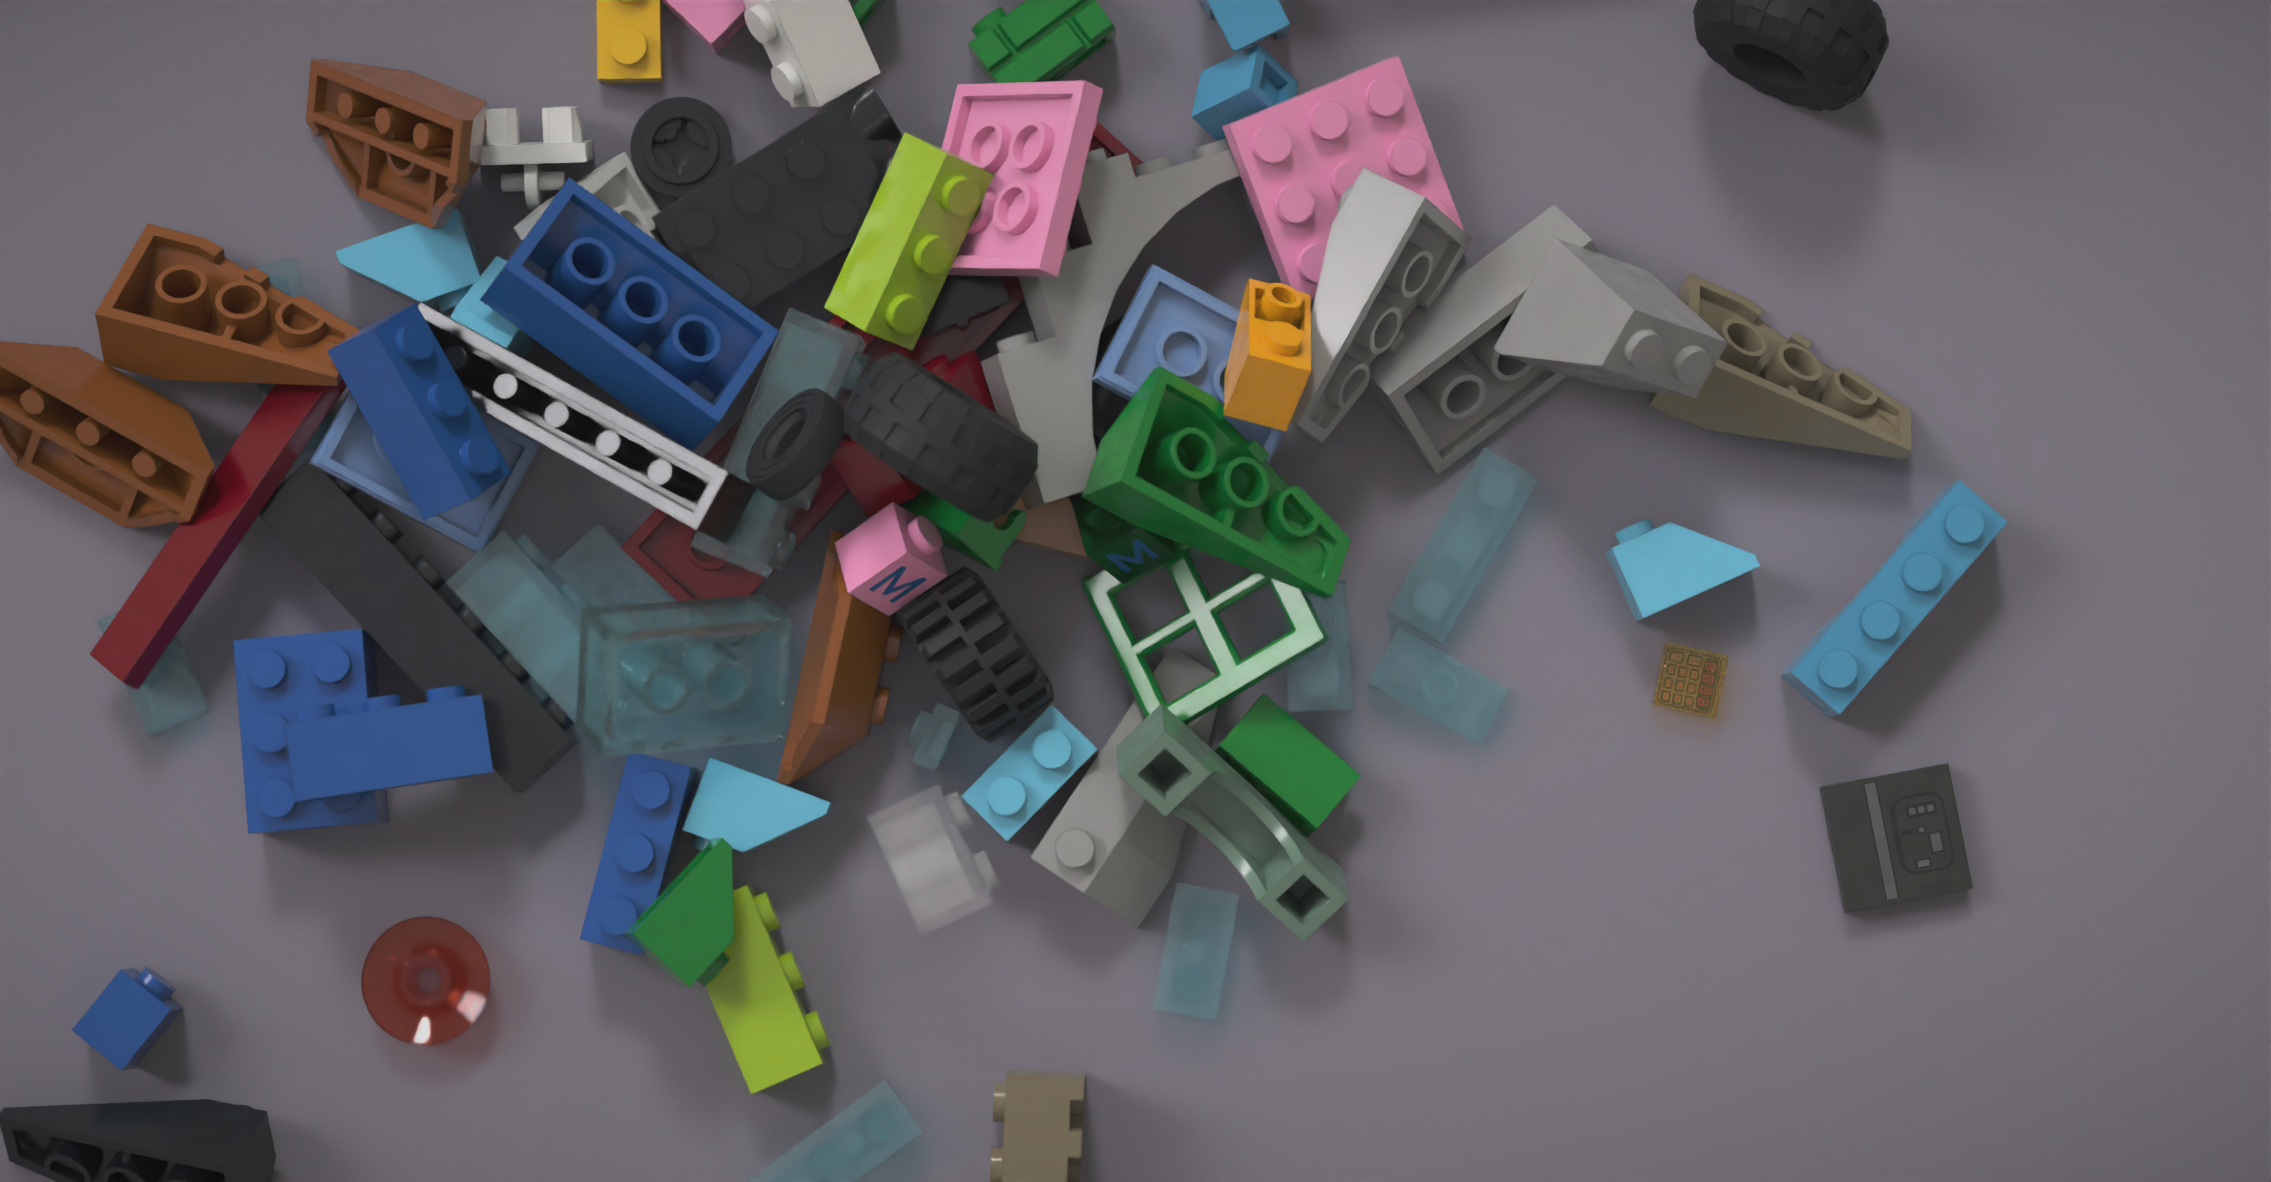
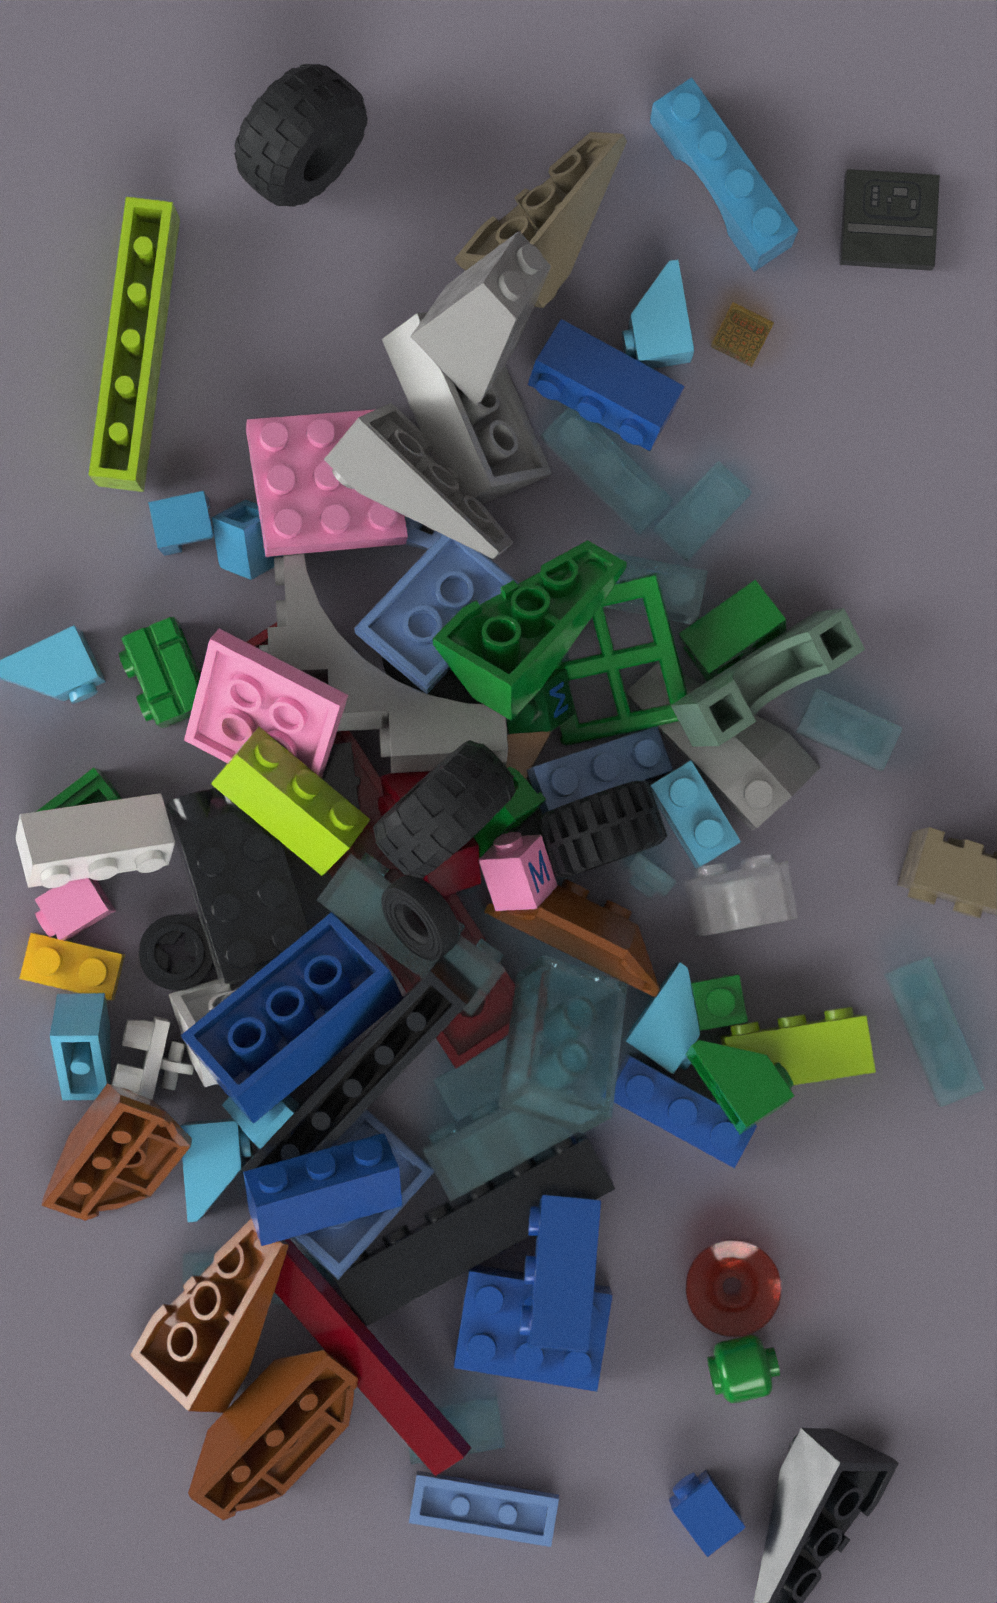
camera: 70 degrees left, 0 degrees up
(63, 729) = (484, 1508): none -> medium blue plate
(324, 1018) = (743, 1368): none -> green head
(530, 56) = (81, 1045): none -> medium azure slope
(792, 866) = (719, 1001): none -> green brick
(1058, 636) = (600, 768): none -> medium blue plate
(1269, 355) = (443, 560): light orange slope -> none
(1568, 513) = (605, 385): none -> blue brick

